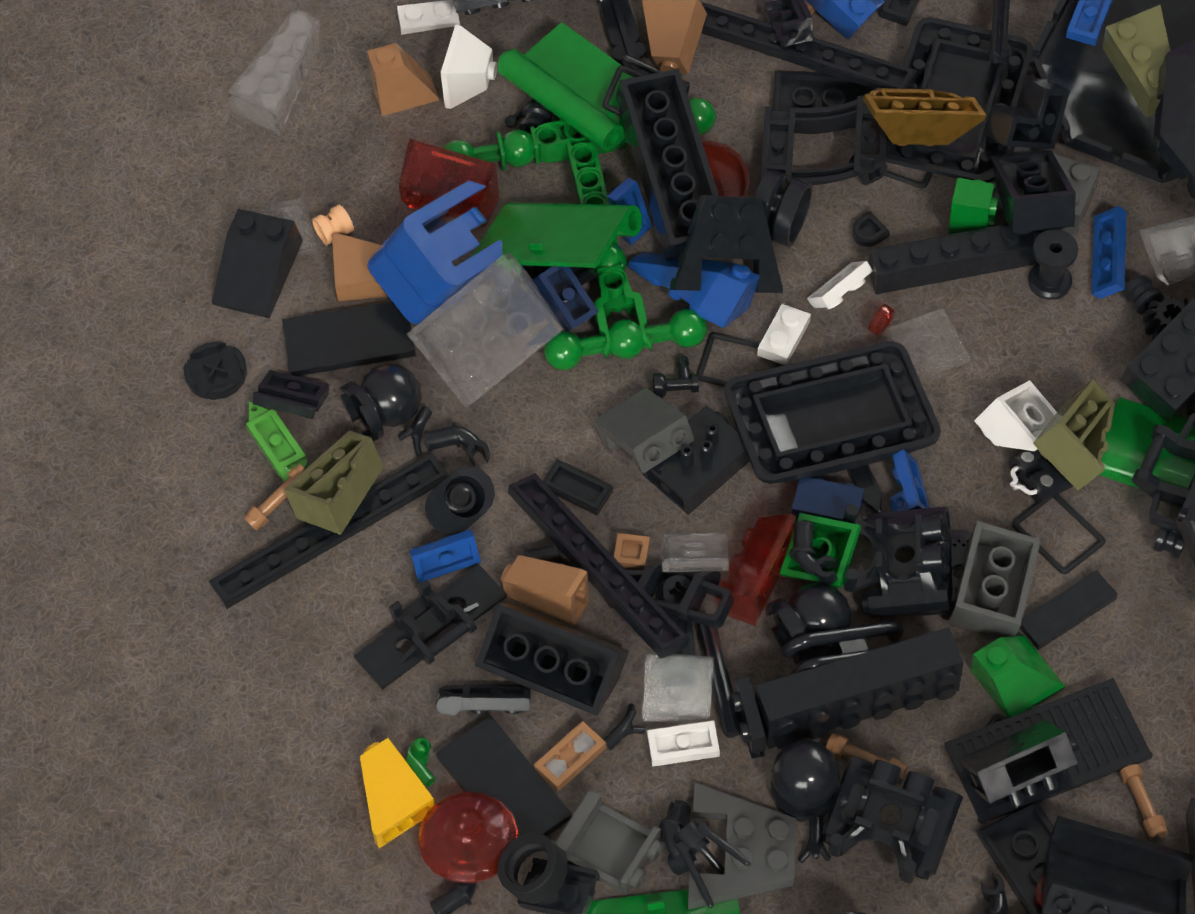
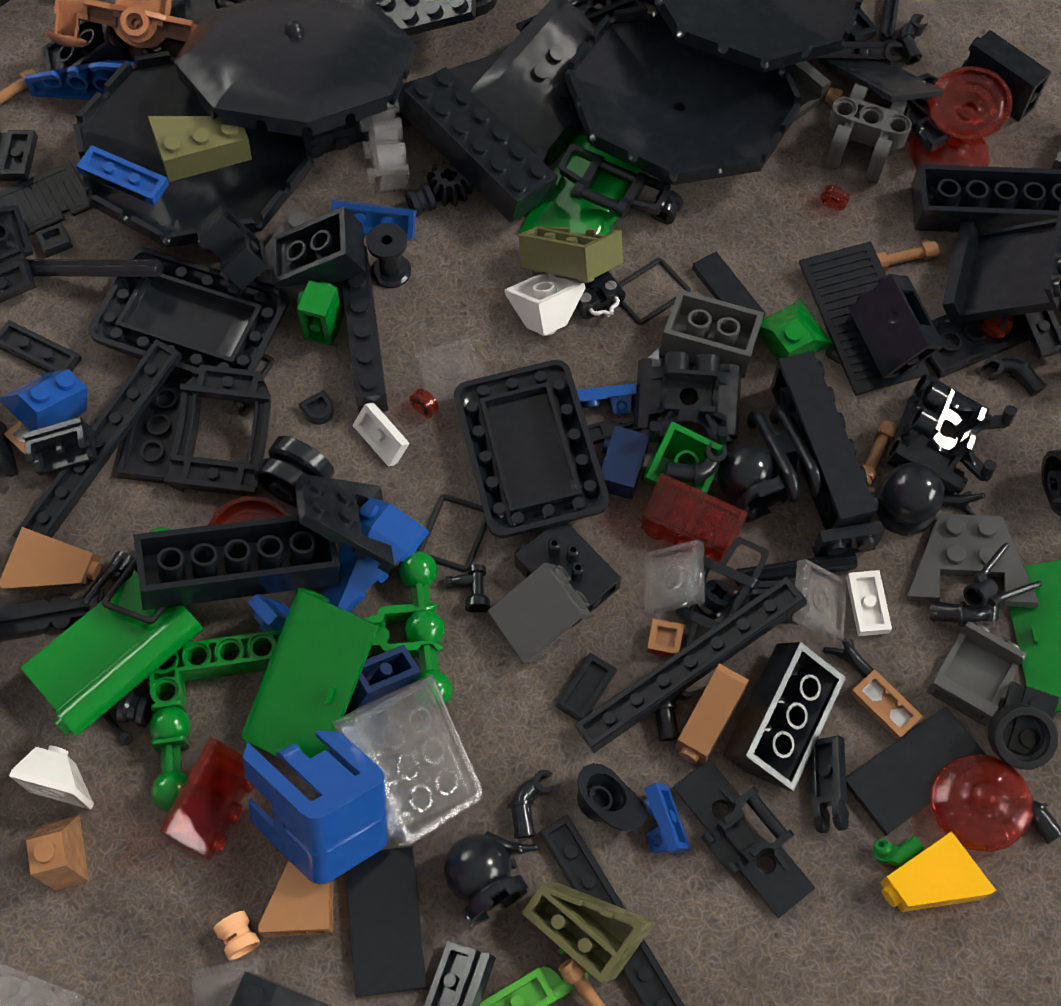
camera: 90 degrees left, 5 degrees up
(784, 334) = (429, 488): white plate -> none
(923, 115) = (215, 331): pearl gold wedge -> none

